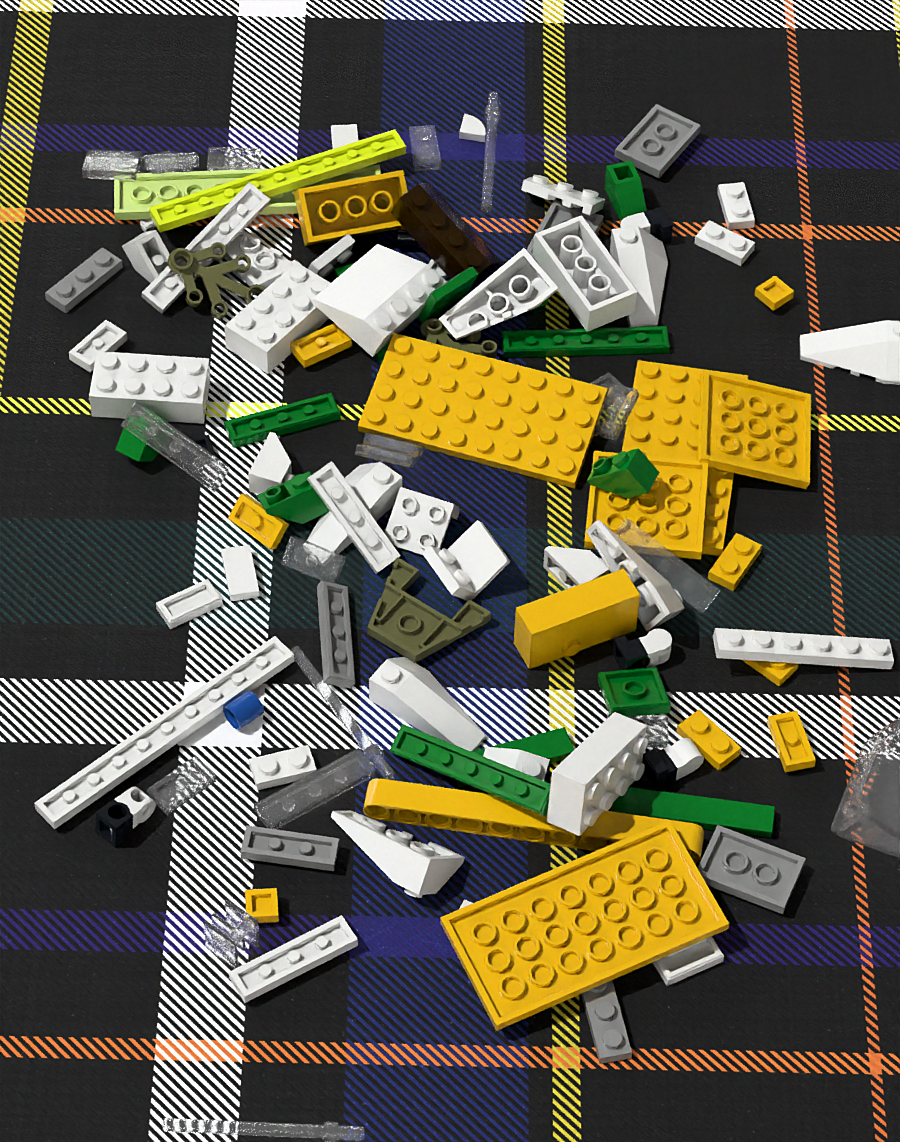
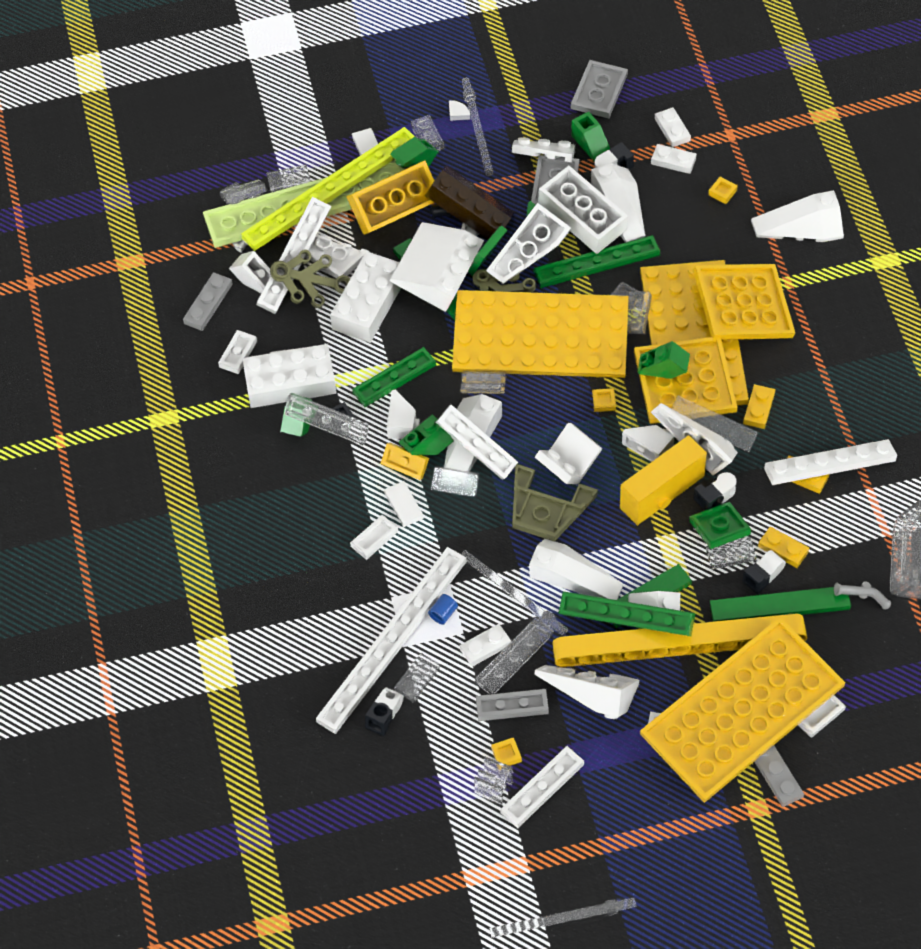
camera: 10 degrees left, 5 degrees up
(112, 164) = (198, 203): clear slope -> none
(320, 345) = (403, 311): yellow plate -> none
(335, 634) = (490, 534): light grey tile -> none
(337, 253) = (393, 235): white plate -> none
(398, 158) = (414, 152): none -> green slope
(419, 521) = (523, 432): white bracket -> none
(537, 508) = (604, 400): none -> yellow tile
(597, 773) = (718, 595): white brick -> none
(750, 869) = (844, 636): light grey plate -> none
(791, 741) = (842, 533): yellow plate -> none
(793, 819) = (863, 591): none -> light grey piece

